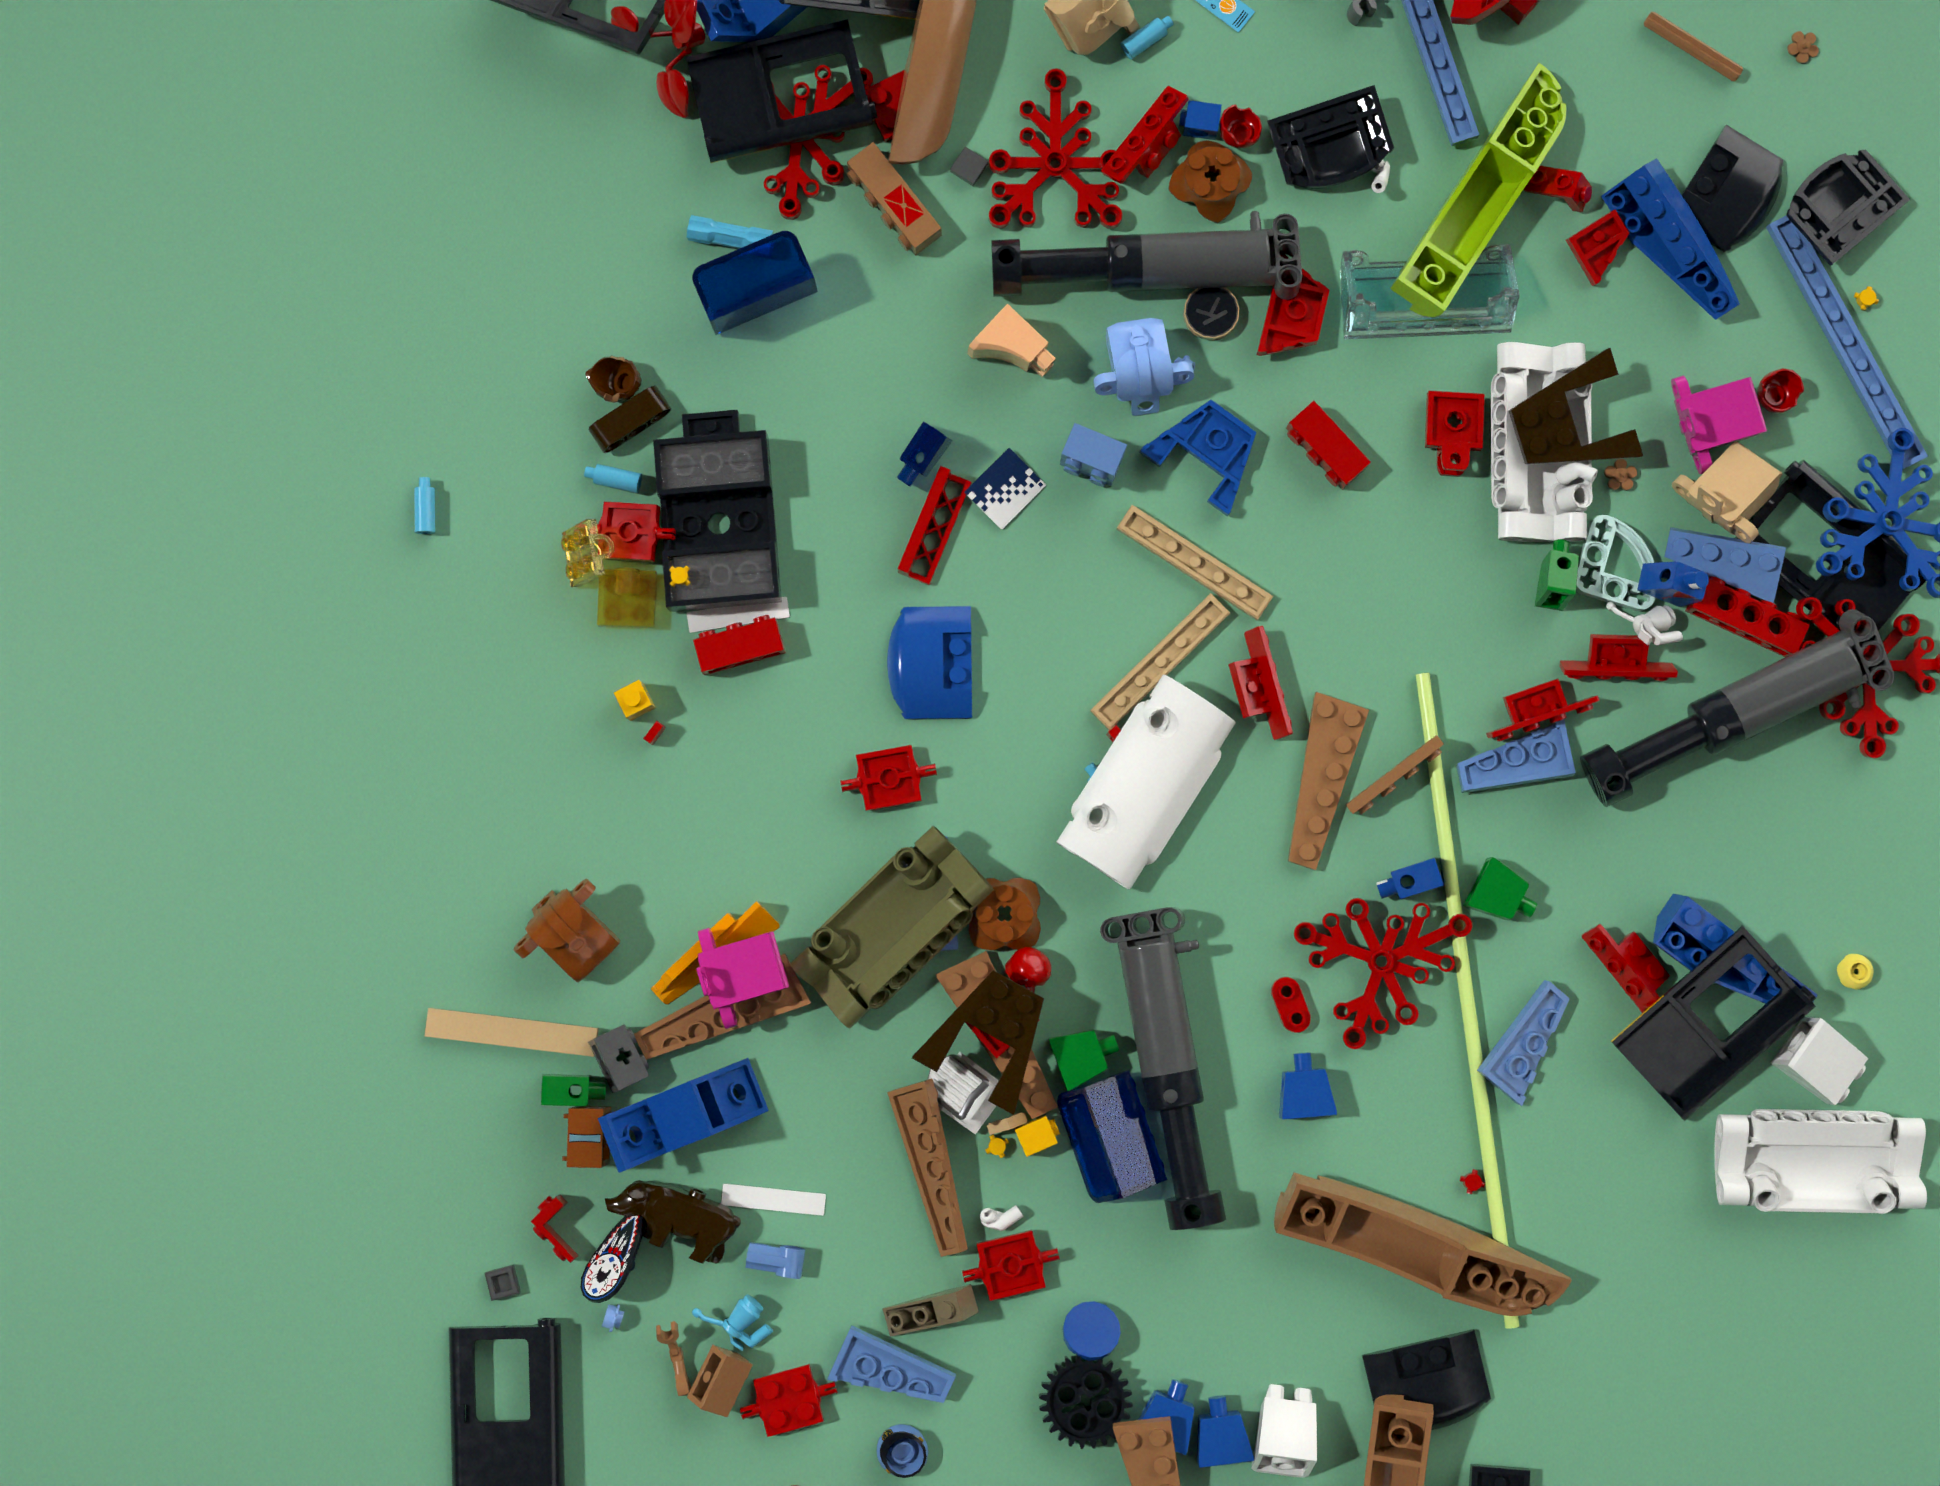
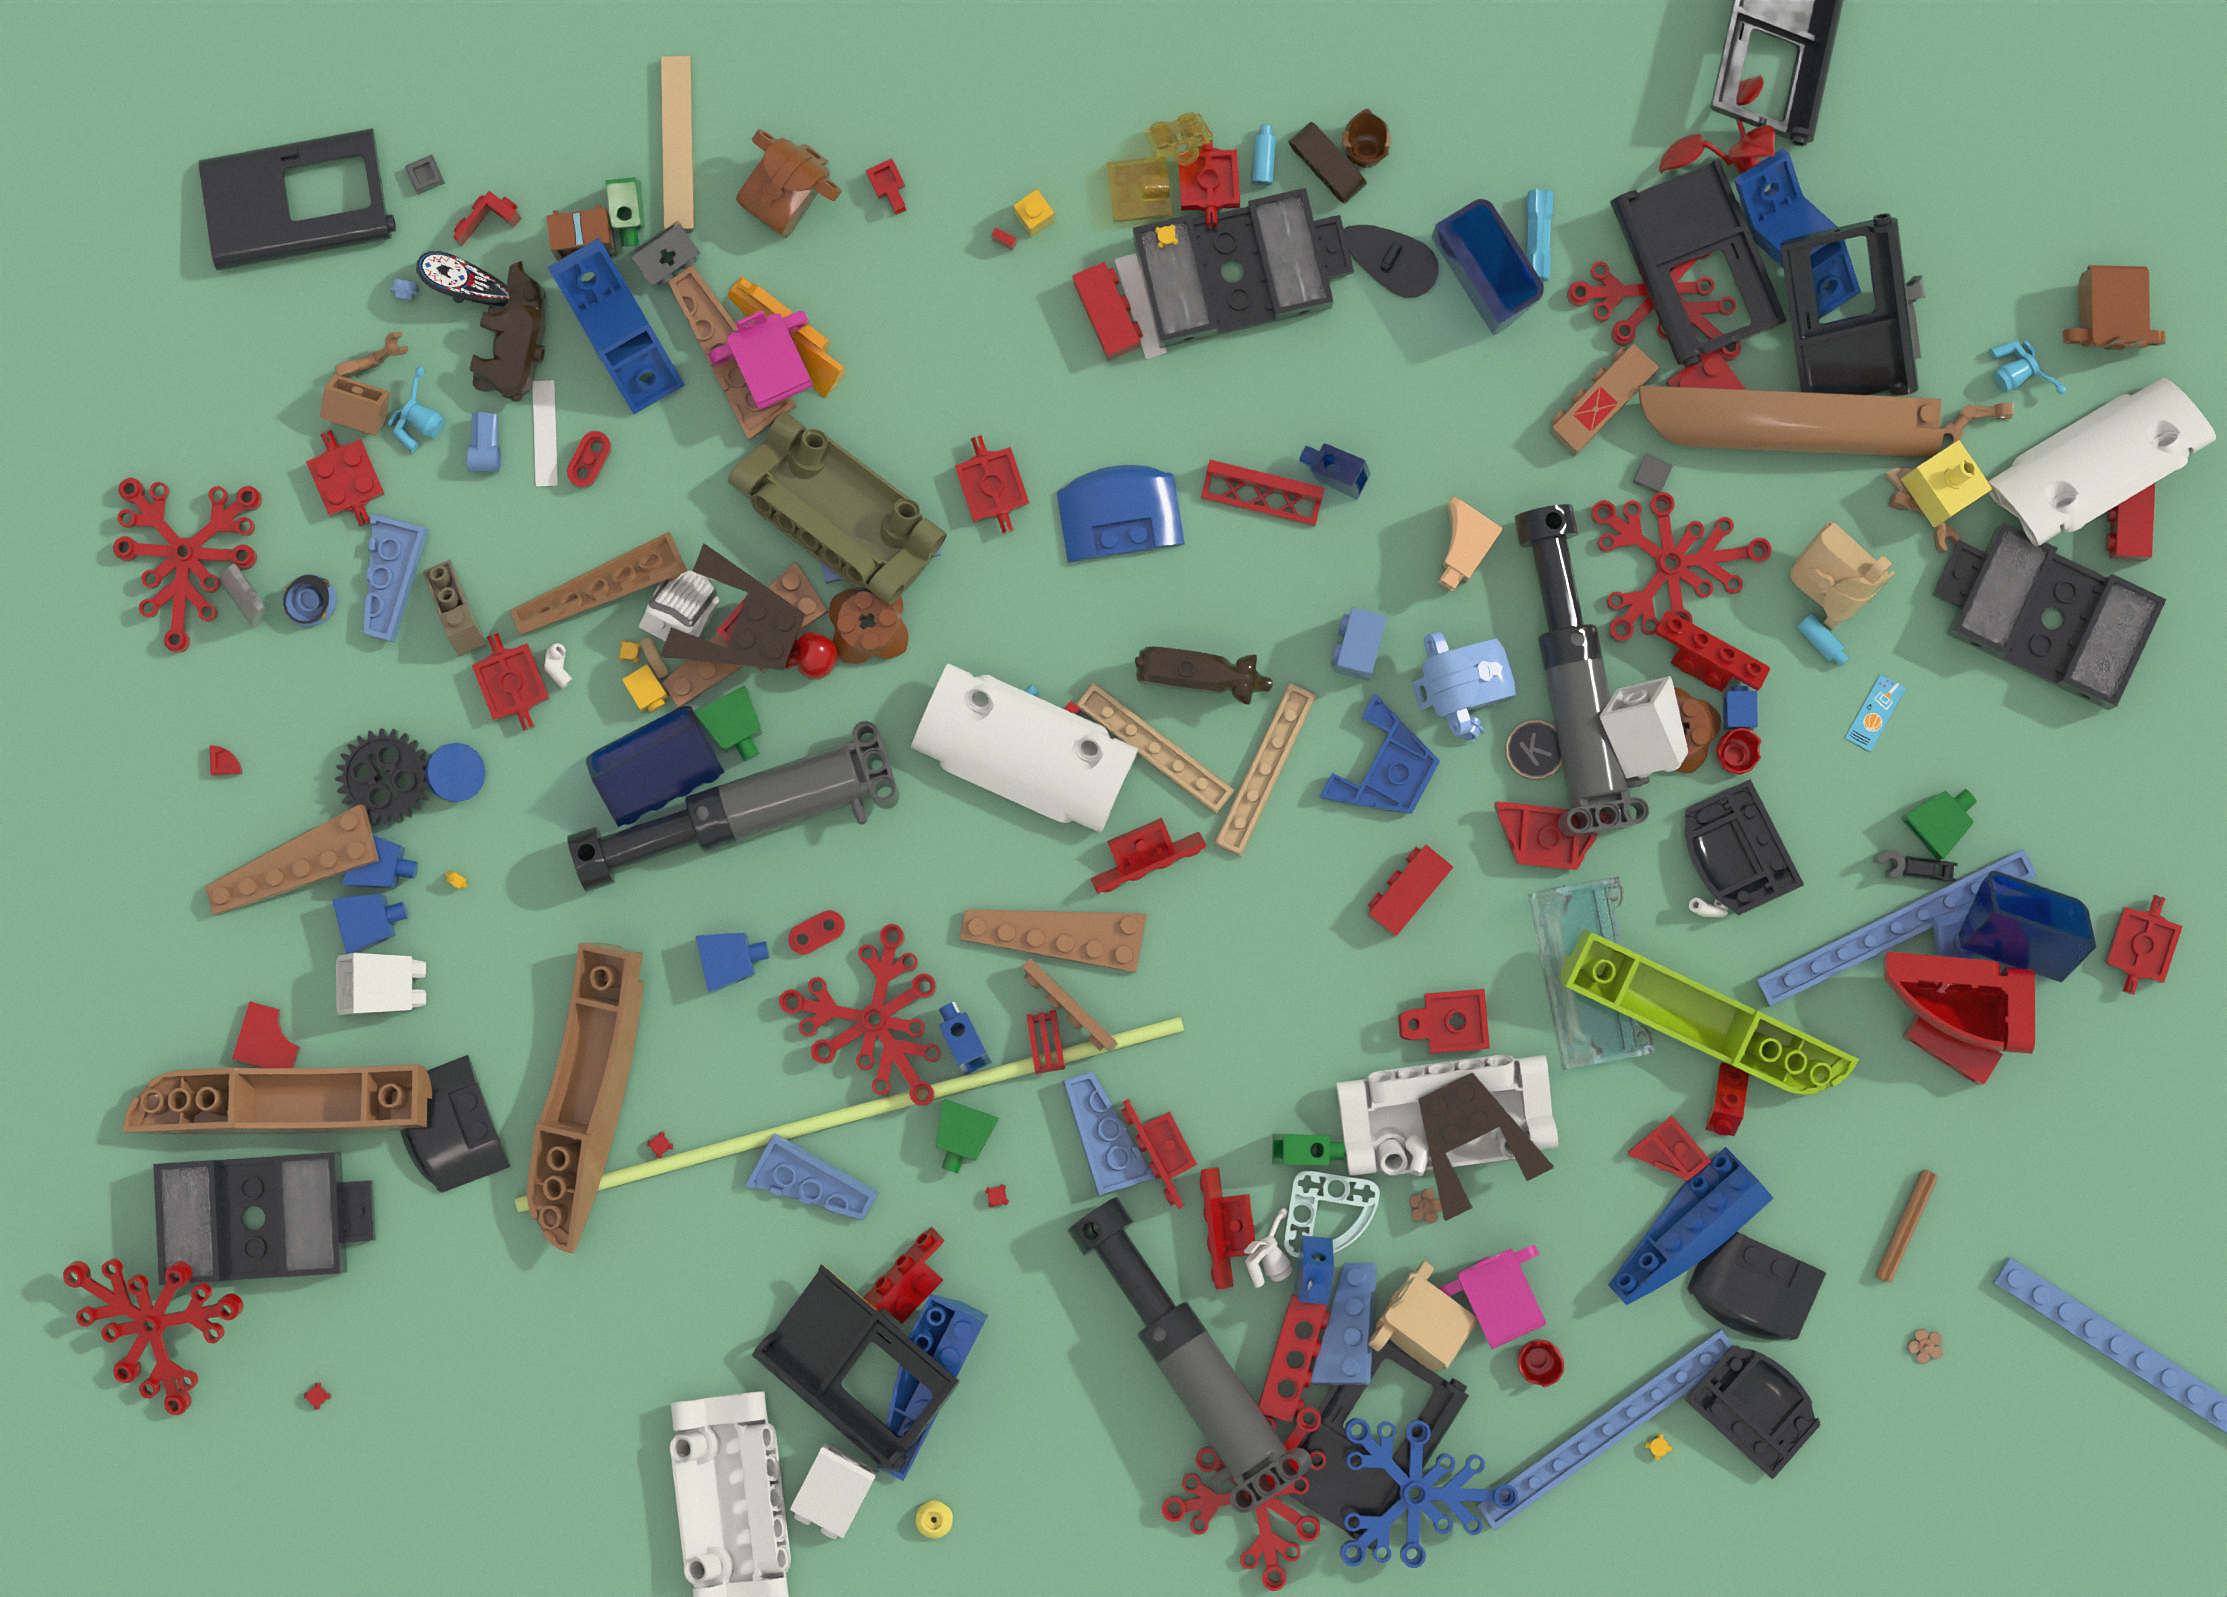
camera: 80 degrees right, 0 degrees up
(582, 836) = (886, 182): none -> red plate
(730, 372) = (1393, 259): none -> black shield
(805, 1161) = (587, 459): none -> red plate
(1005, 488) = (1314, 561): sticker -> none
(1100, 605) = (1200, 672): none -> dark brown animal
(1193, 1343) = (456, 879): none -> yellow piece
(1211, 202) = (1645, 728): none -> white slope
(1399, 803) = (1042, 1018): none -> red tile
(1561, 869) = (997, 1196): none -> red piece

